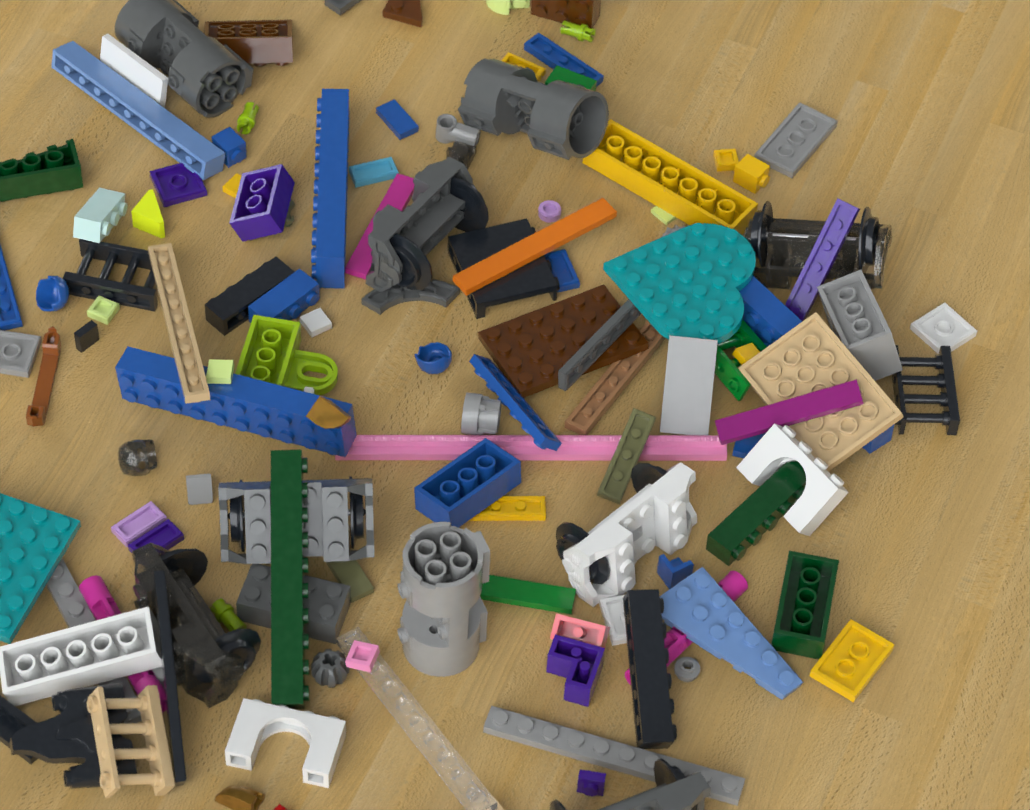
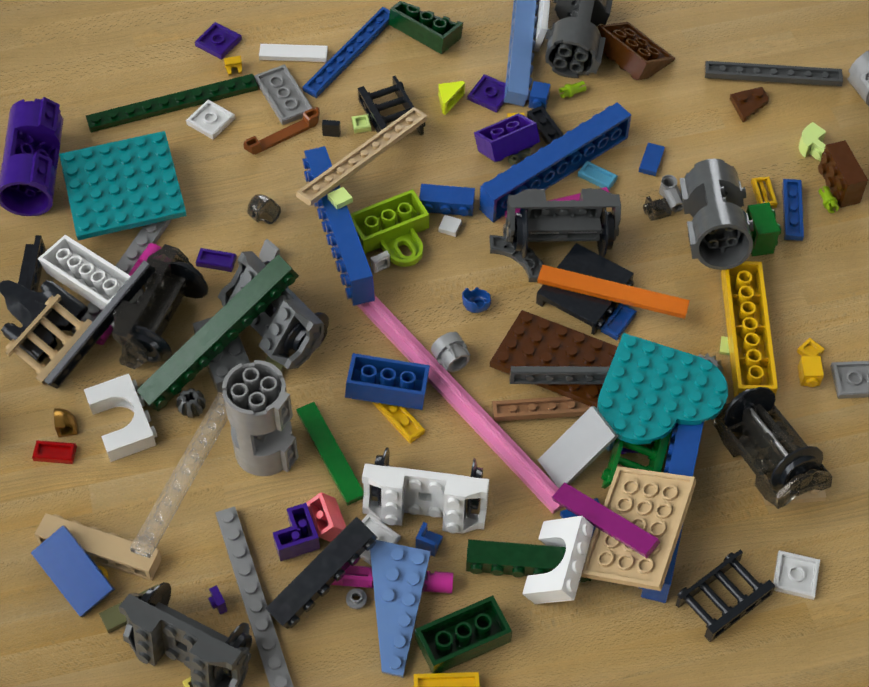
camera: 55 degrees right, 5 degrees up
(52, 293) = (346, 93): blue hair -> none
(99, 215) = (420, 72): light aqua brick -> none
(138, 523) = (222, 242): lavender tile -> none
(225, 614) = (188, 330): lime pin -> none
(231, 306) = (414, 175): black brick -> none
(298, 170) = (545, 124): none -> black plate
(327, 414) = (349, 267): pearl gold brick -> none
(362, 656) = (206, 411): bright pink plate -> none
(518, 407) = (476, 364): blue plate -> none
(549, 211) = (661, 283): lavender tile -> none
(626, 456) = (494, 452): olive tile -> none
(745, 353) = (638, 463): yellow tile -> none
(821, 258) = (749, 455): plate -> none
(860, 324) = (724, 517): light grey brick -> none

